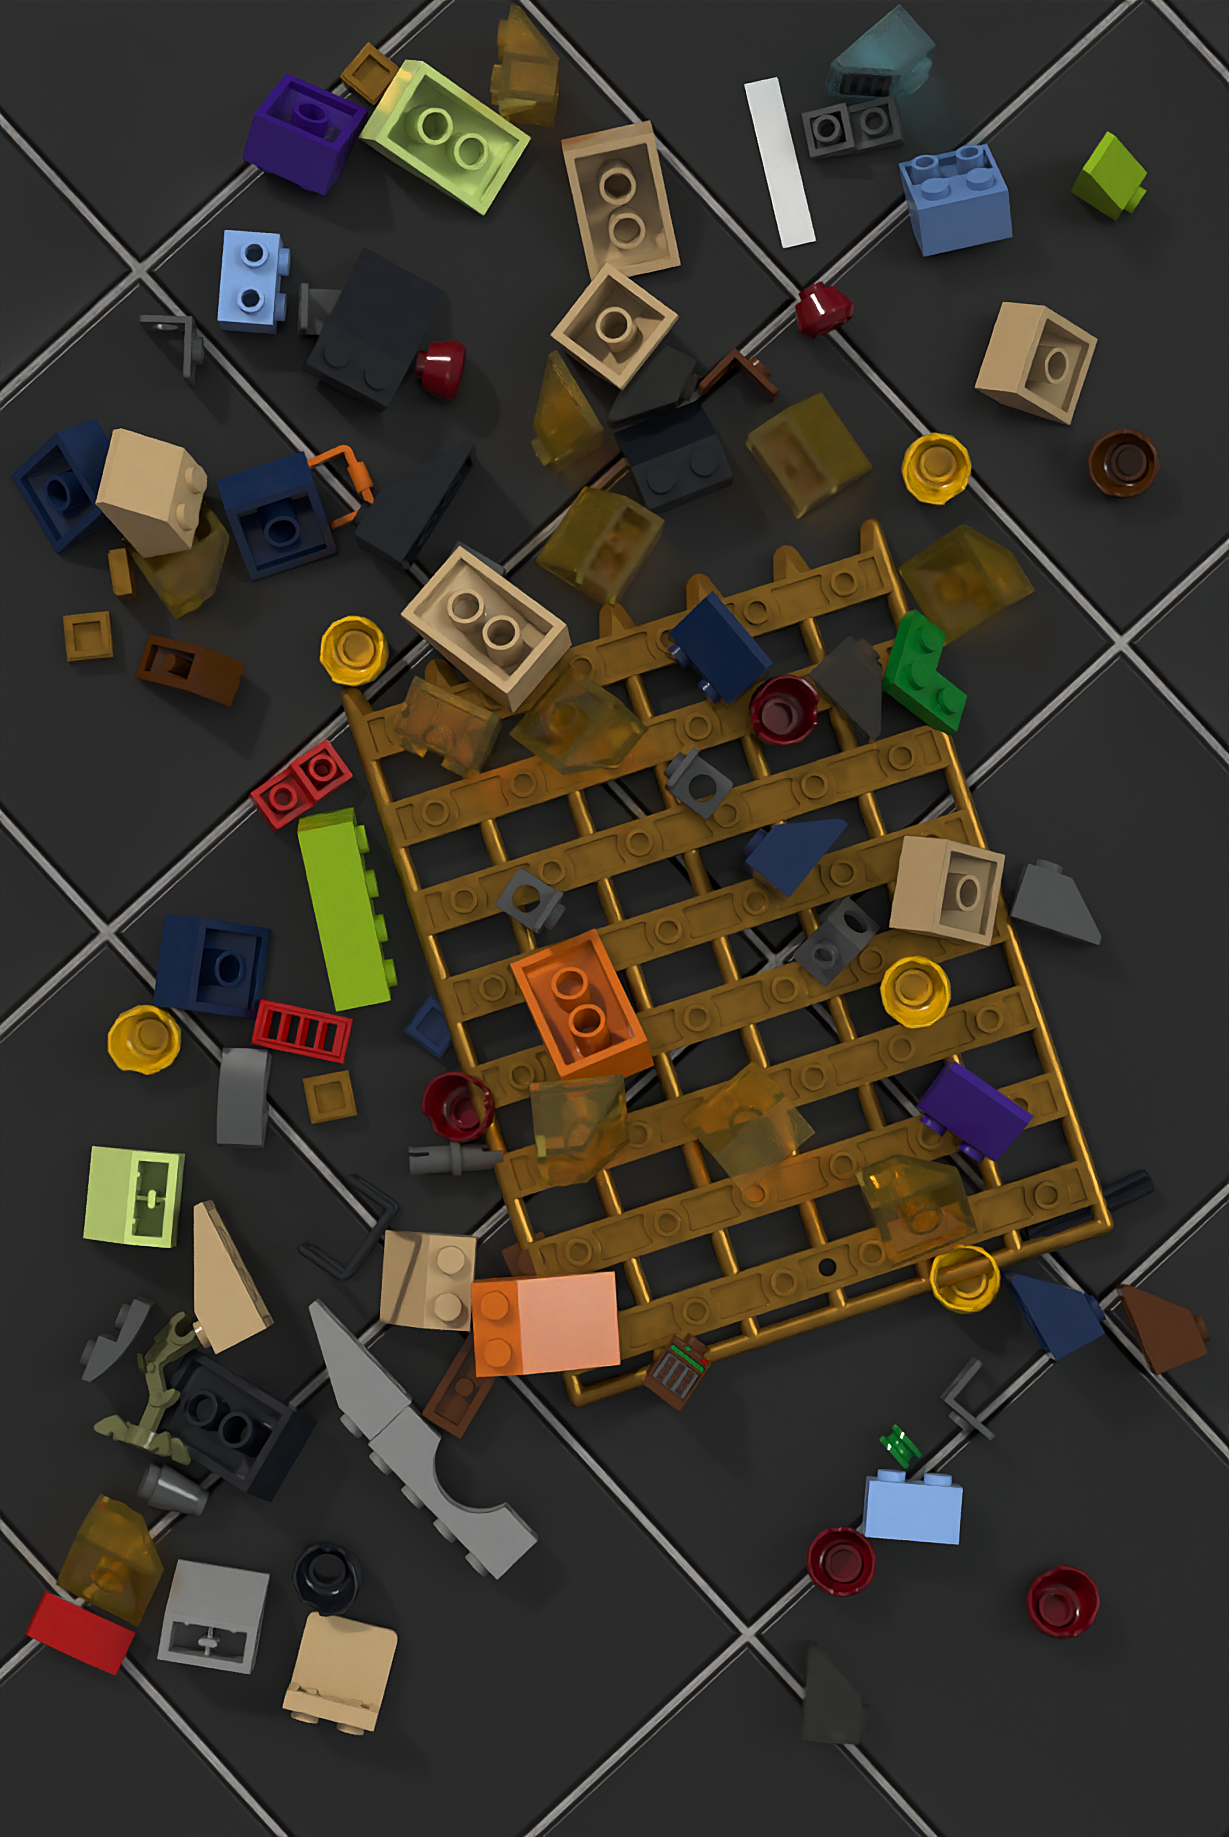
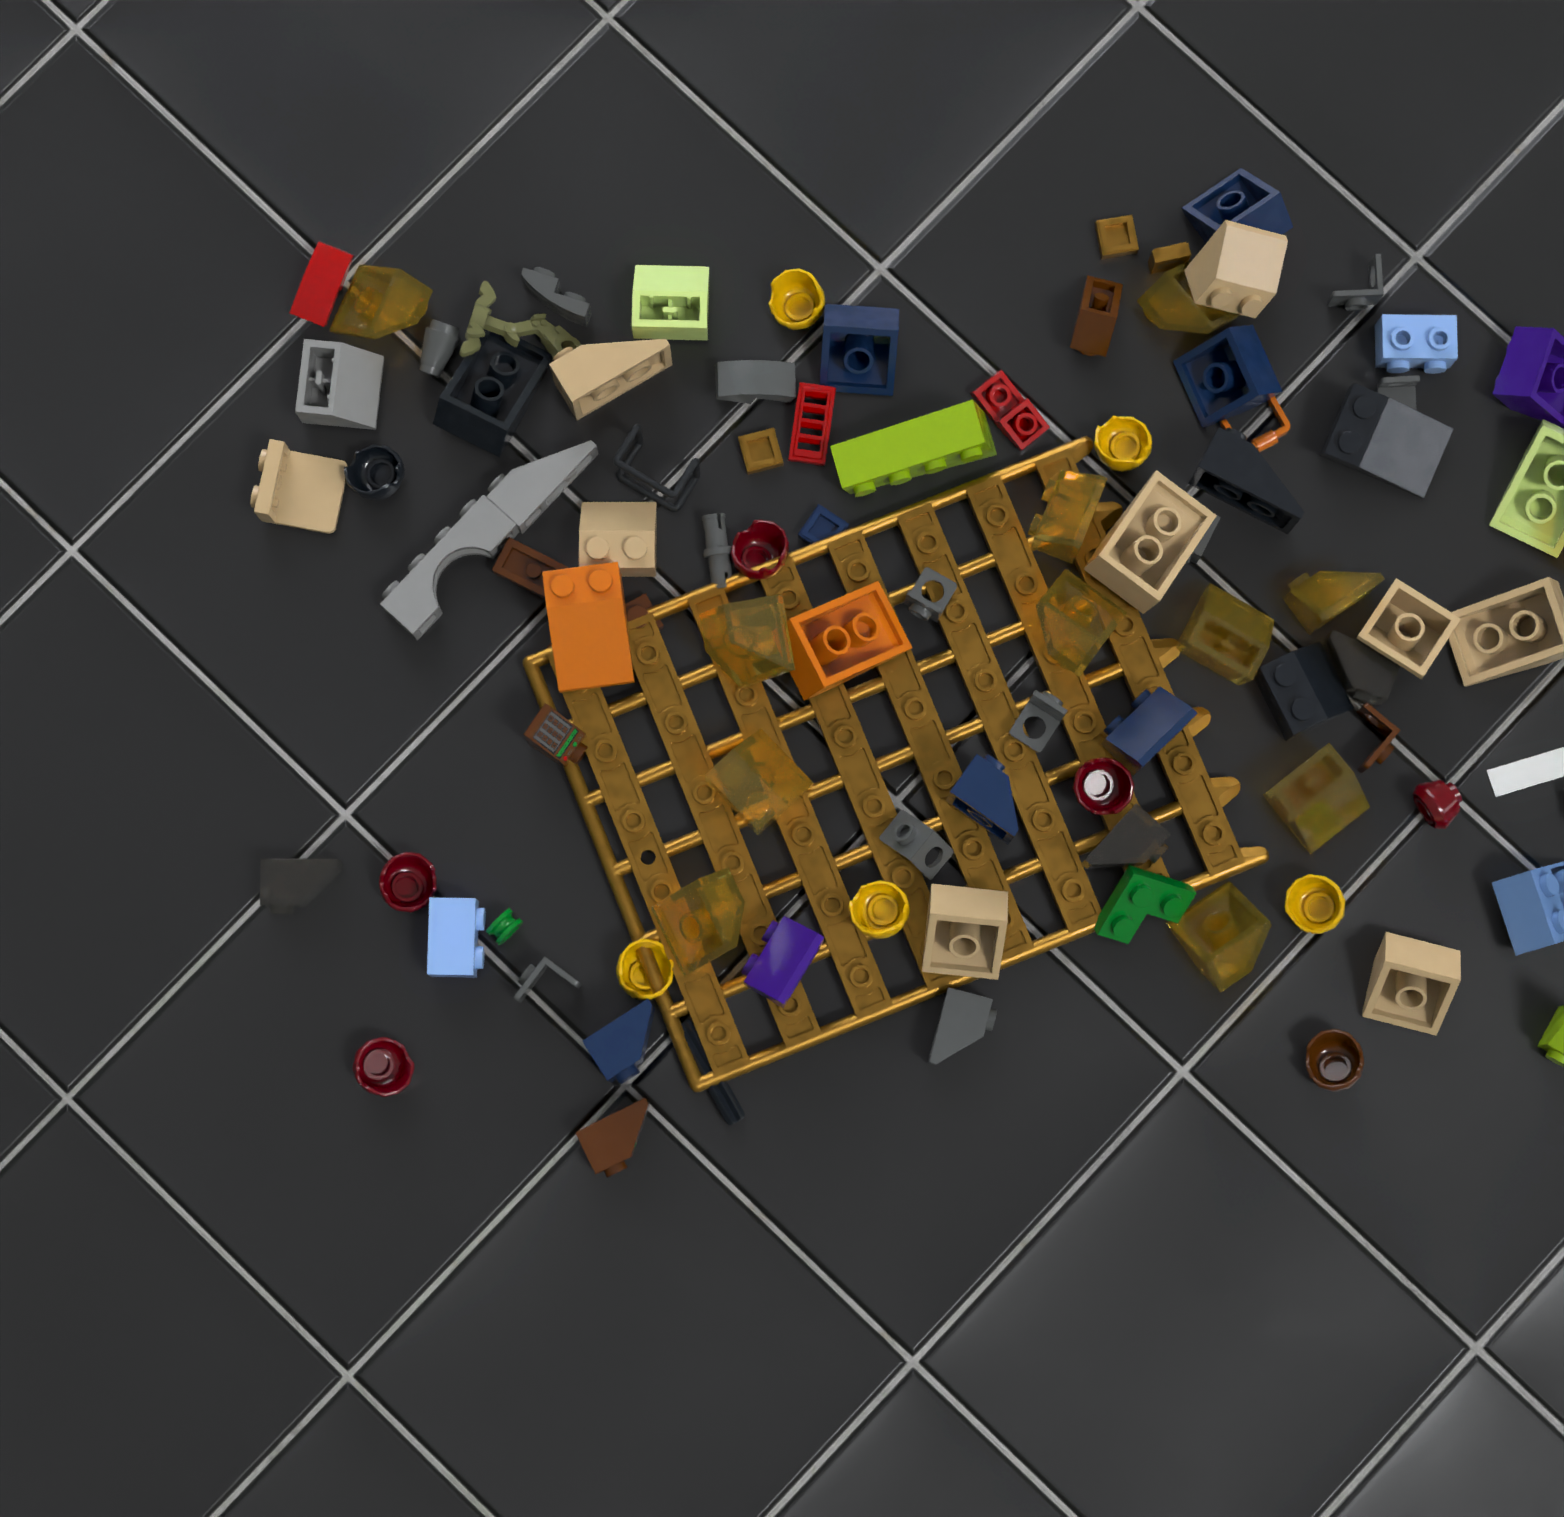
camera: 90 degrees right, 5 degrees down
(442, 368) = (1359, 498): dark red cone -> none

